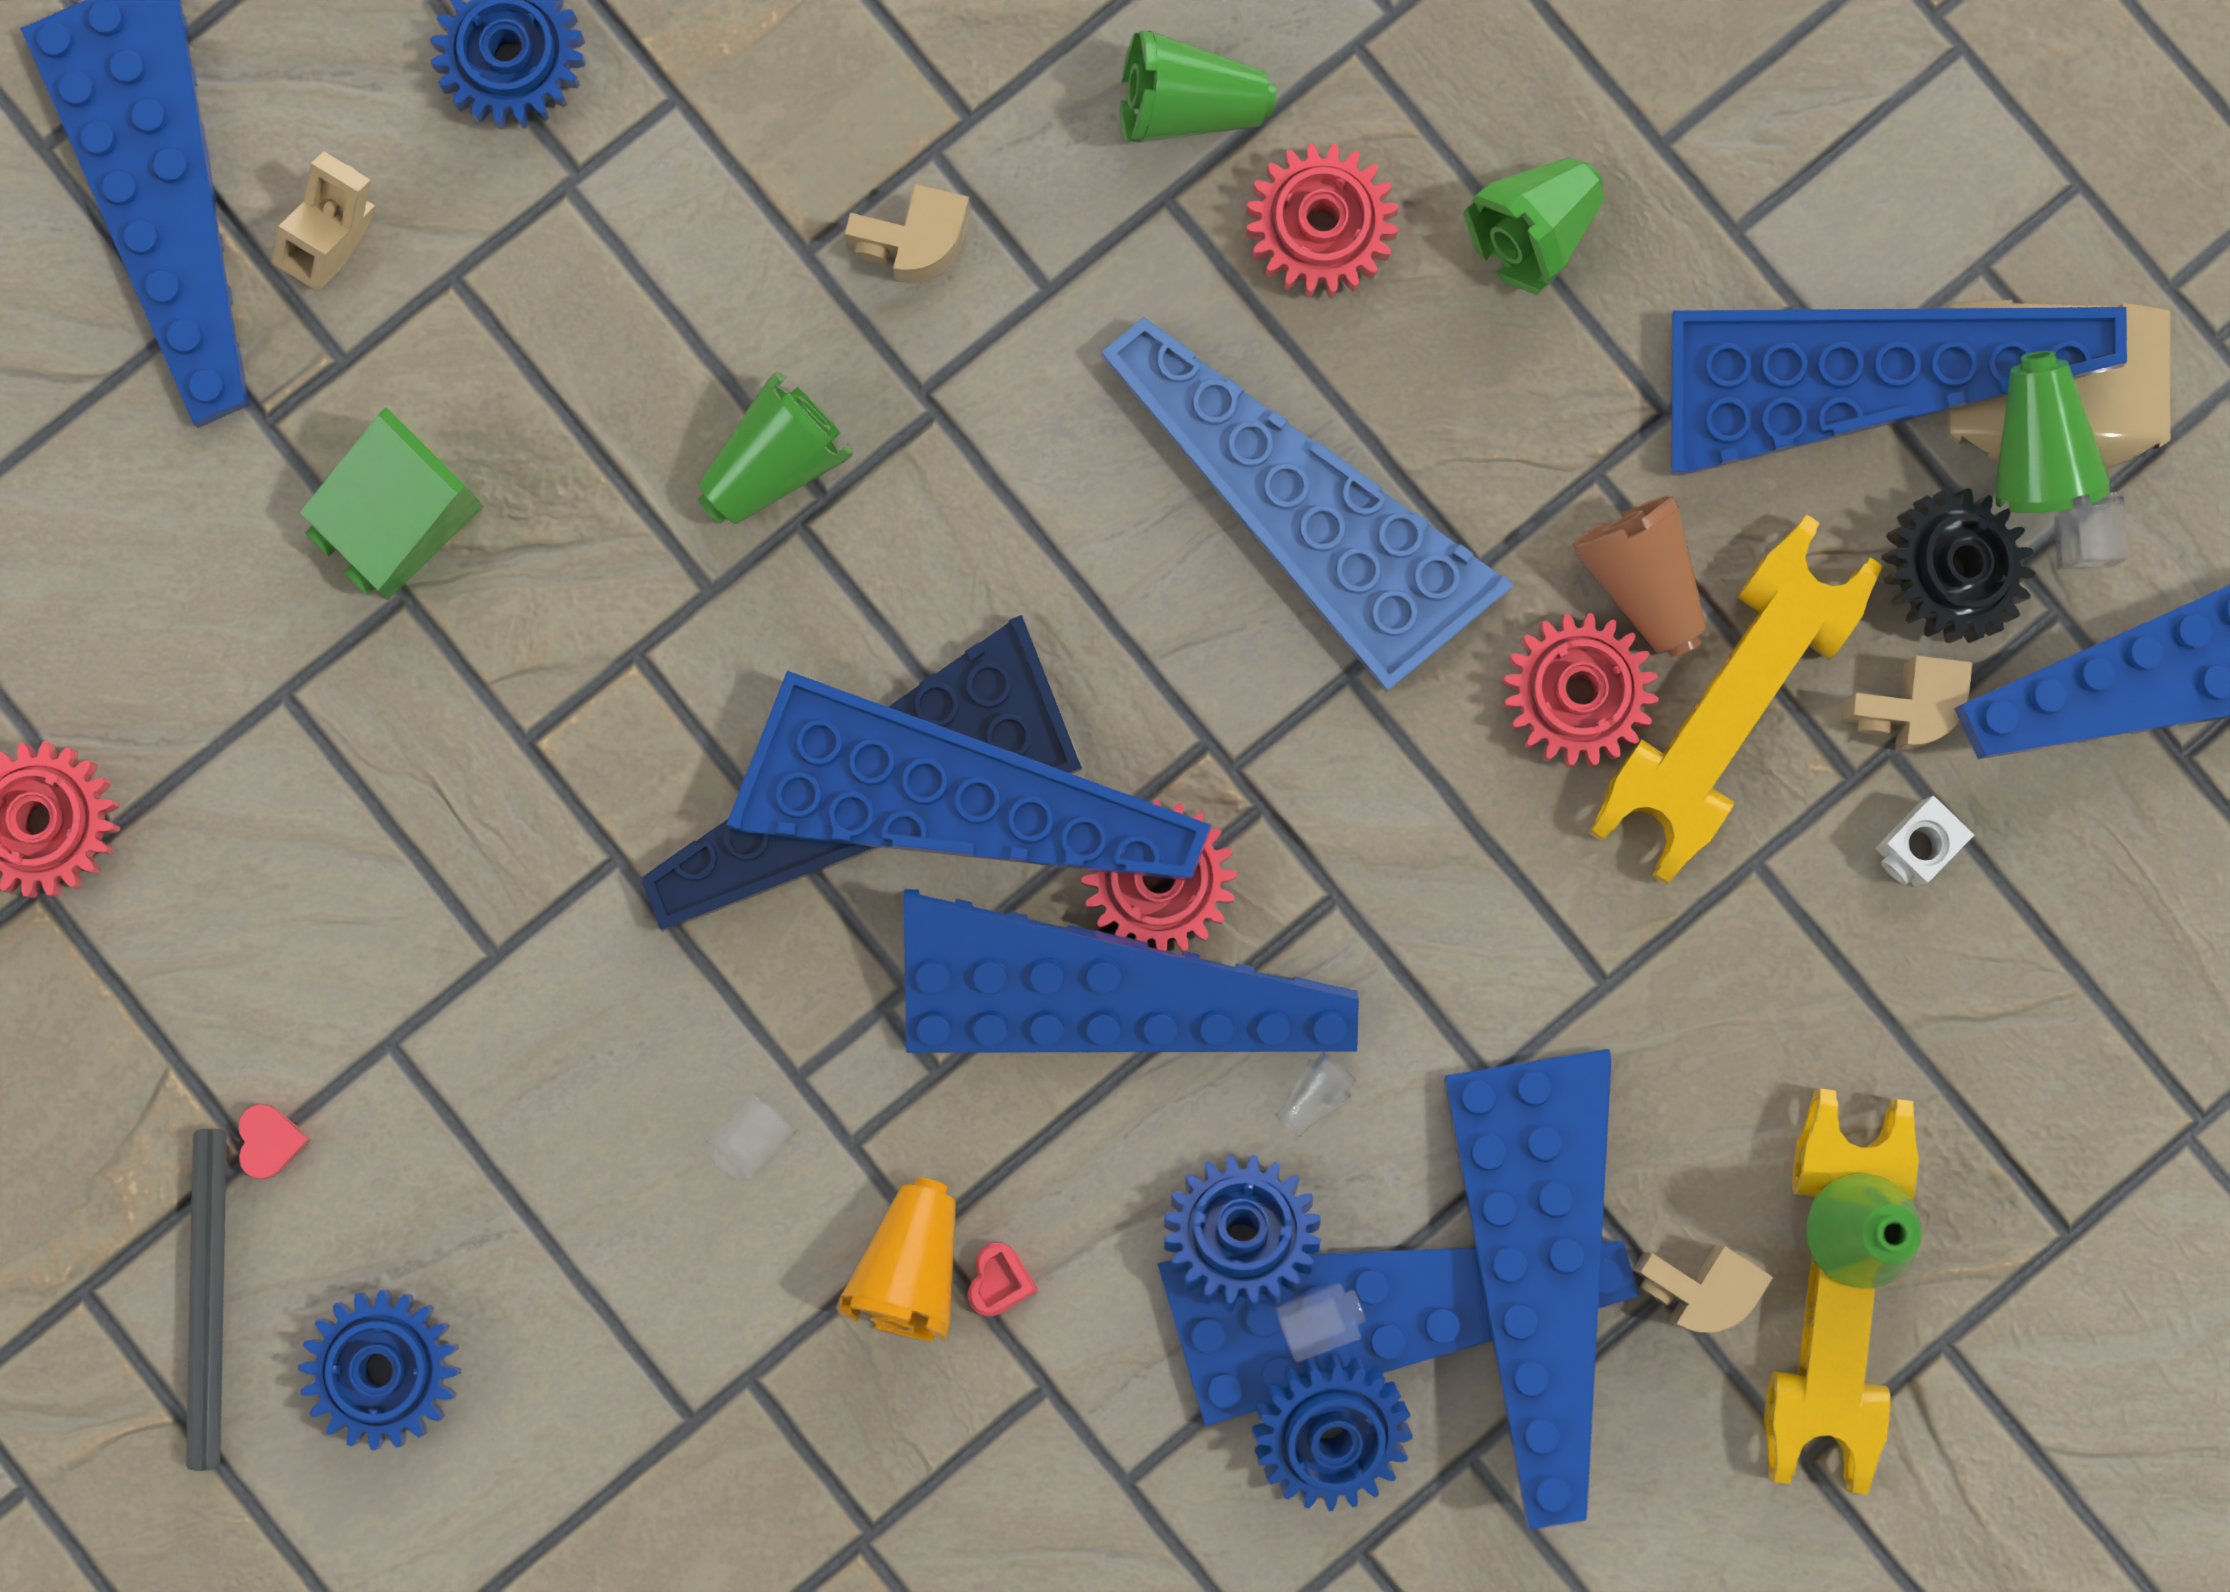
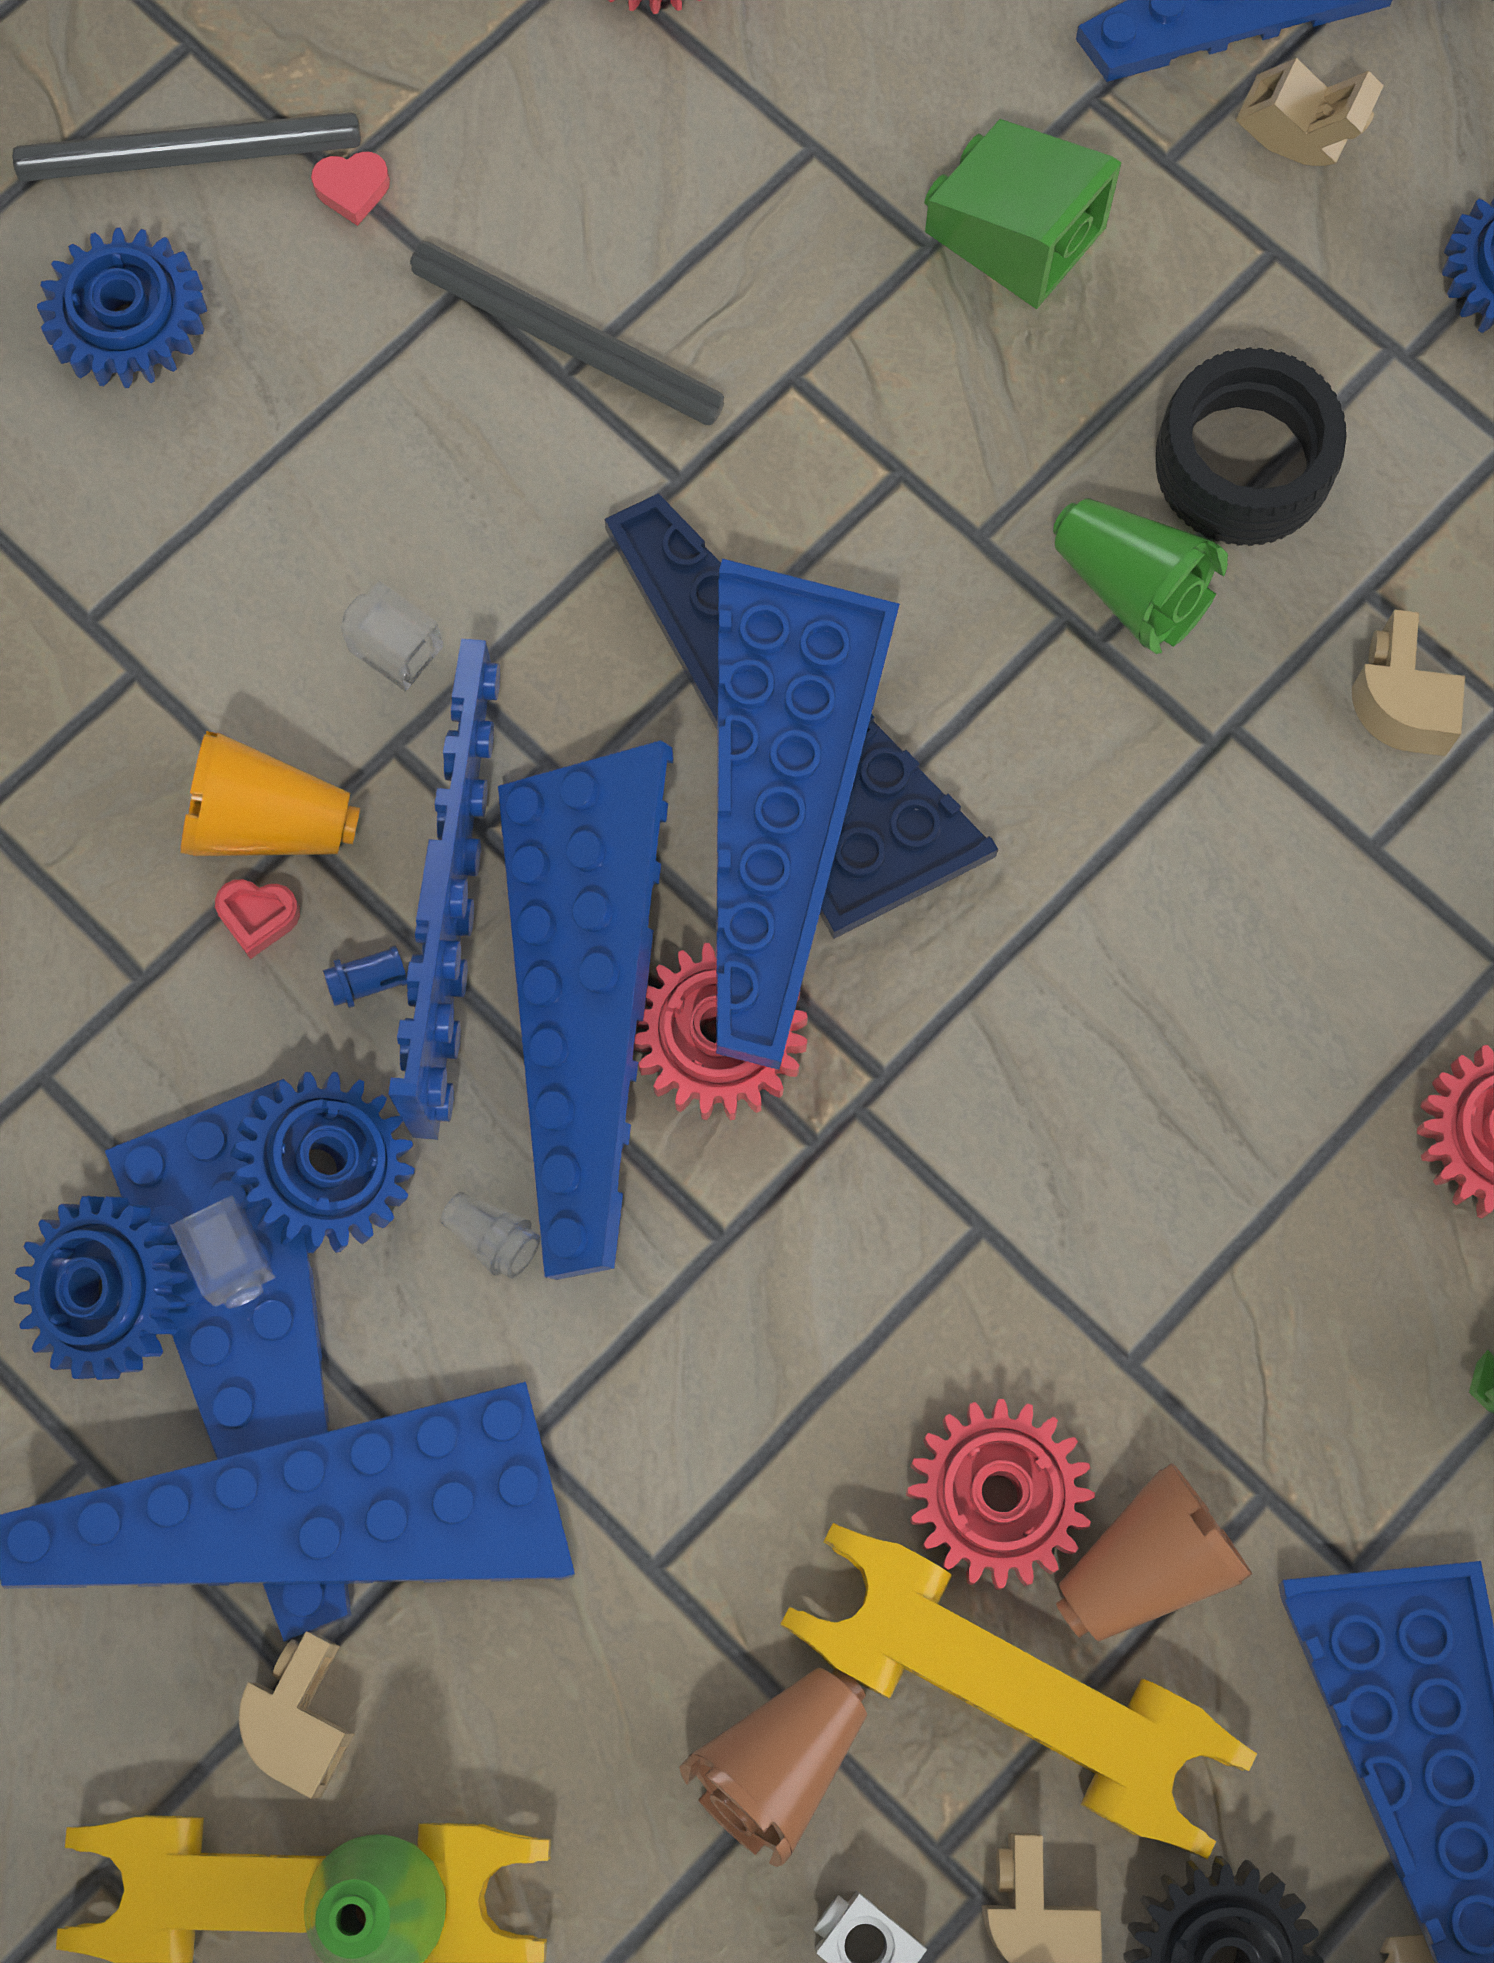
camera: 90 degrees right, 10 degrees down
(456, 949) = (567, 333): none -> dark grey axle
(633, 274) = (1258, 382): none -> black tyre
(1023, 1102) = (444, 906): none -> blue wing
(1072, 1186) = (364, 976): none -> blue pin
(1351, 549) = (1126, 1213): medium blue wing -> none
(1776, 894) = (779, 1761): none -> nougat cone

